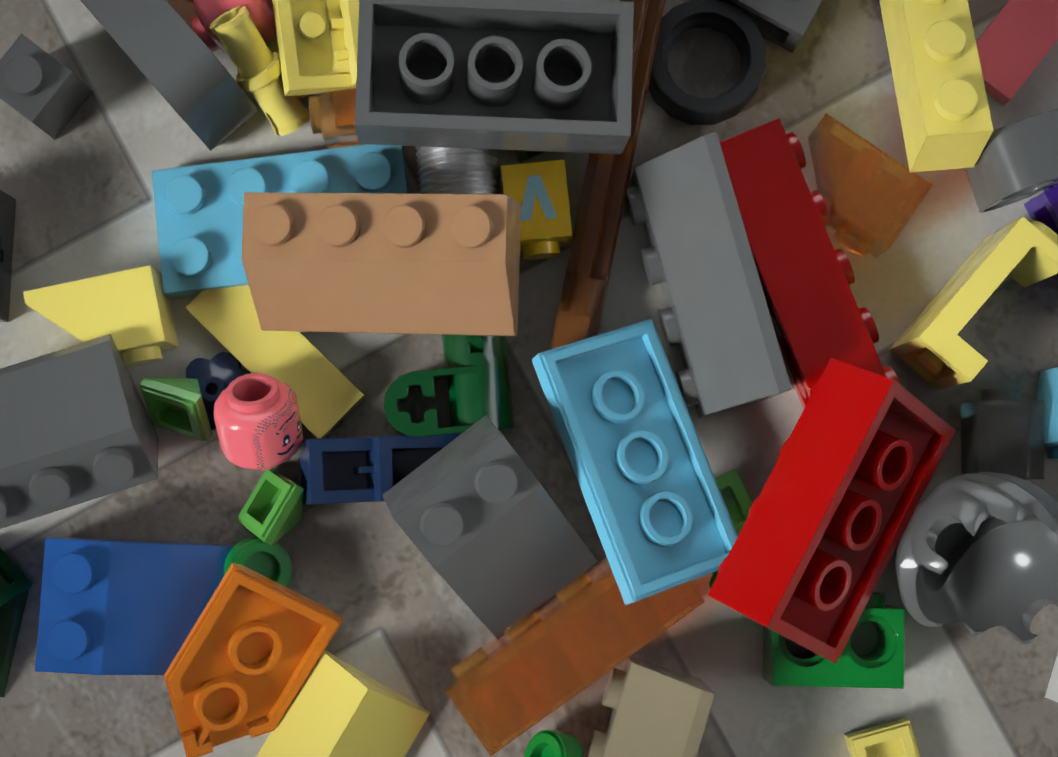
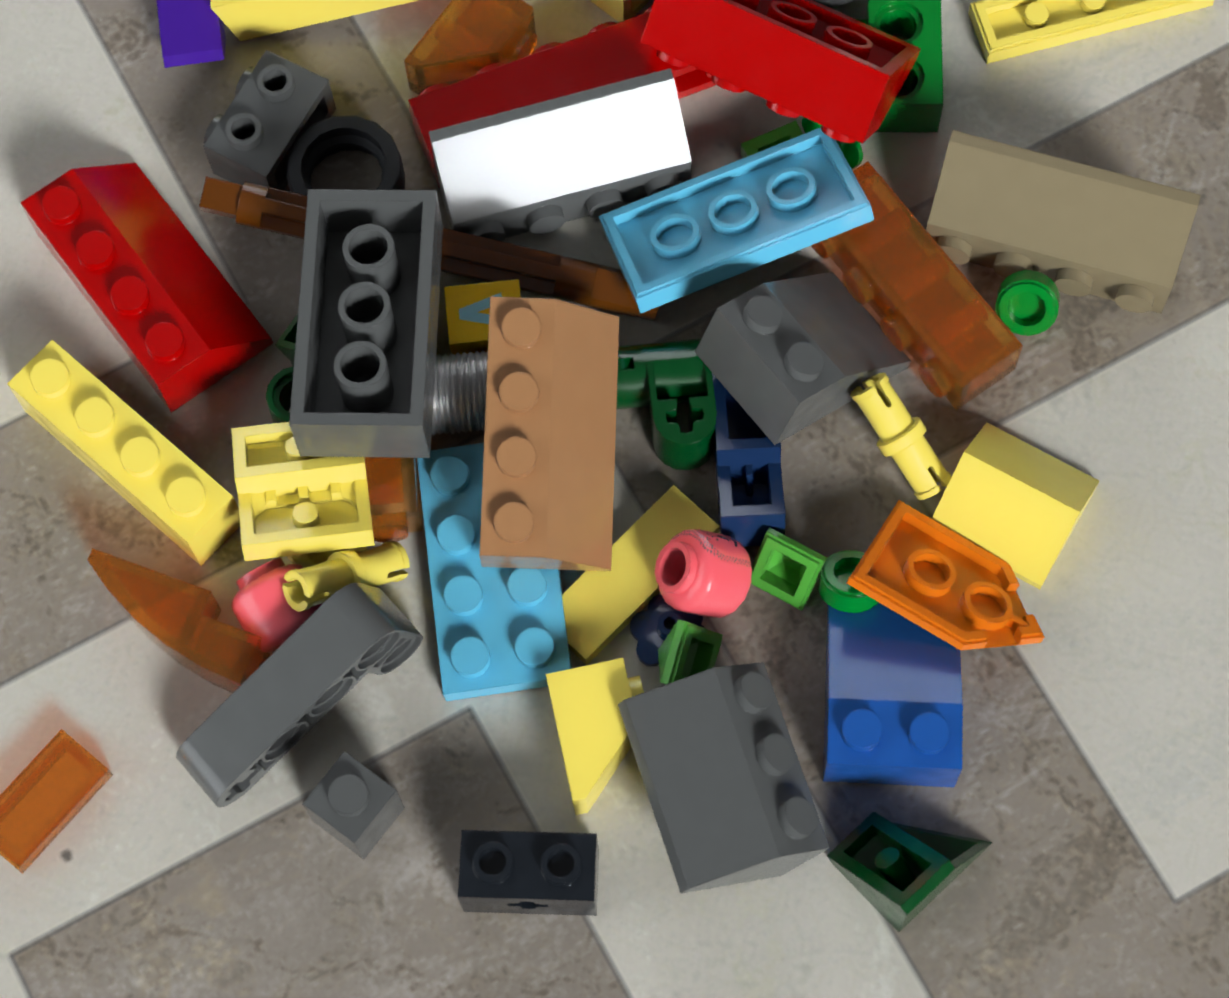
camera: 85 degrees left, 15 degrees down
(399, 625) = (901, 436): none -> light yellow pin

